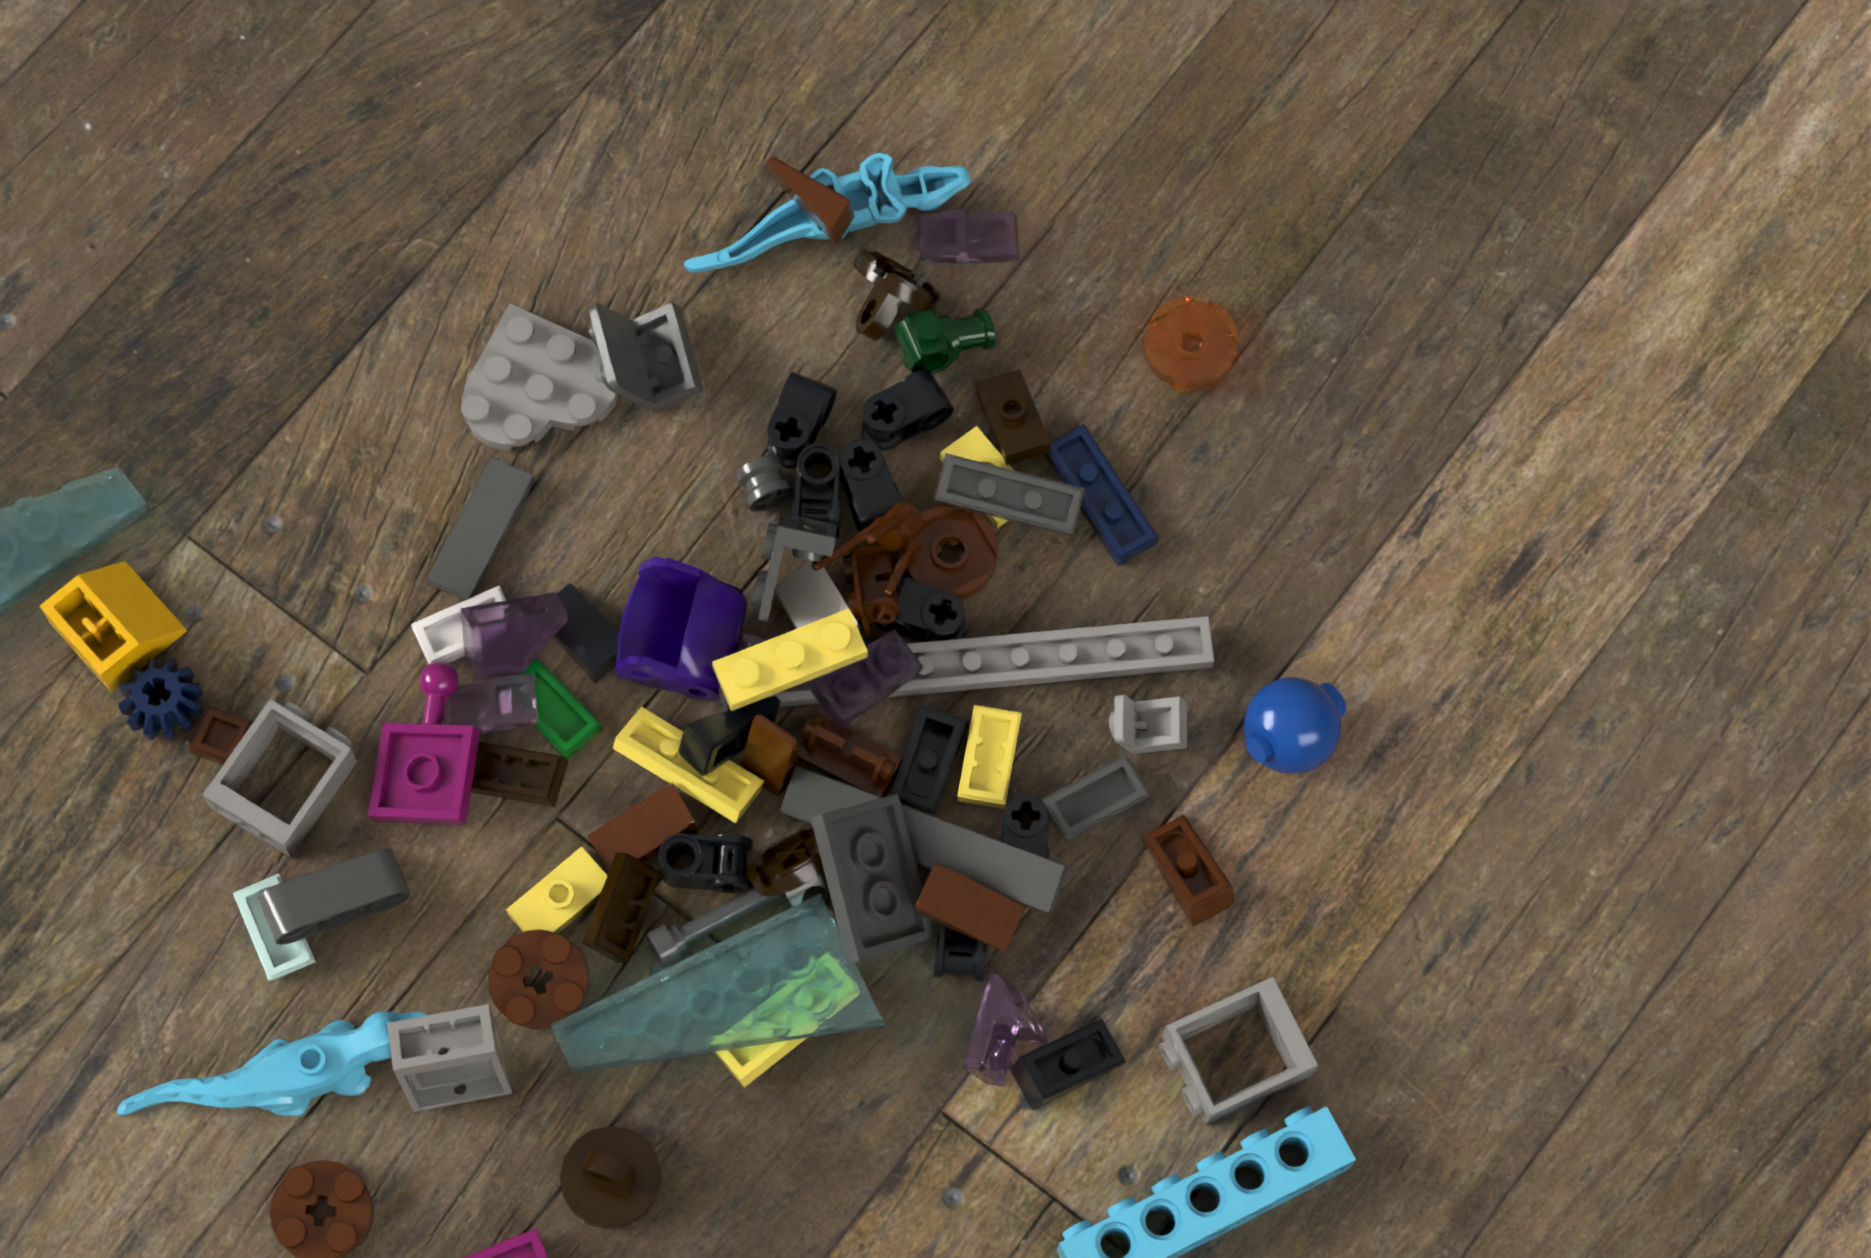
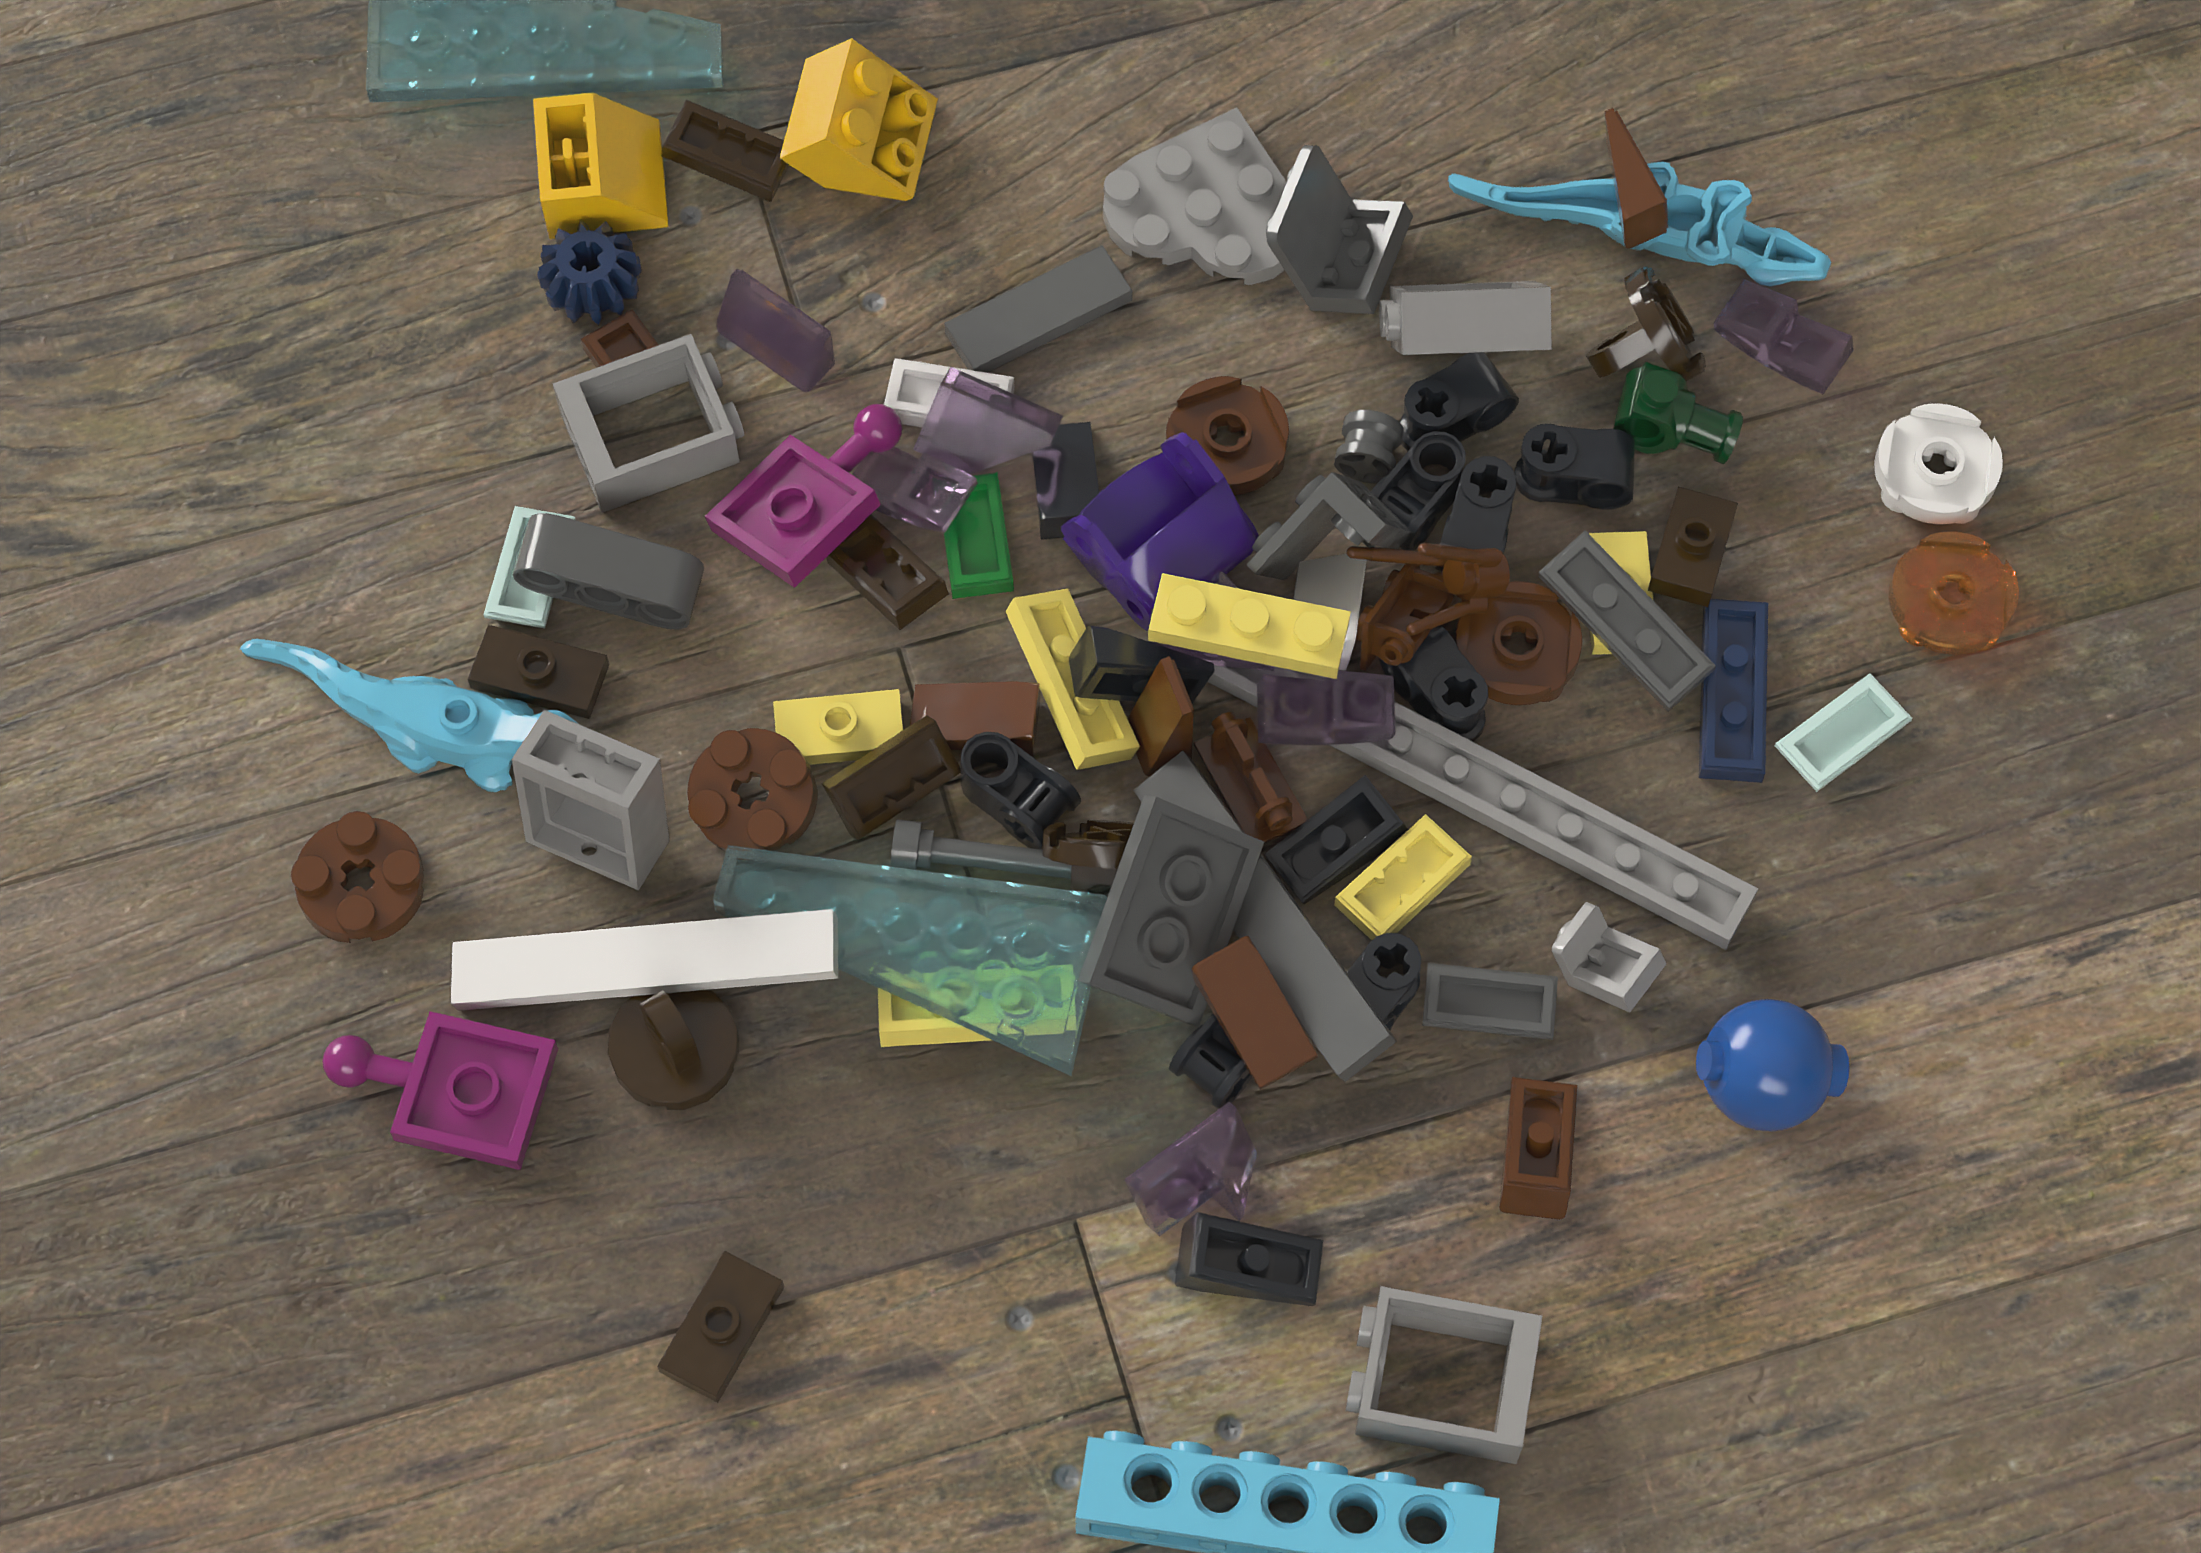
camera: 40 degrees right, 5 degrees down
(189, 552) = (726, 150): none -> dark brown plate
(265, 477) = (858, 124): none -> yellow slope
(317, 658) = (775, 332): none -> clear purple slope
(333, 993) = (538, 671): none -> dark brown plate
(555, 1137) = (645, 960): none -> white tile
(663, 510) = (1241, 408): none -> reddish brown plate
(771, 357) = (1467, 317): none -> light grey window
(1133, 240) = (1929, 496): none -> white plate
(1186, 478) = (1843, 732): none -> light aqua tile

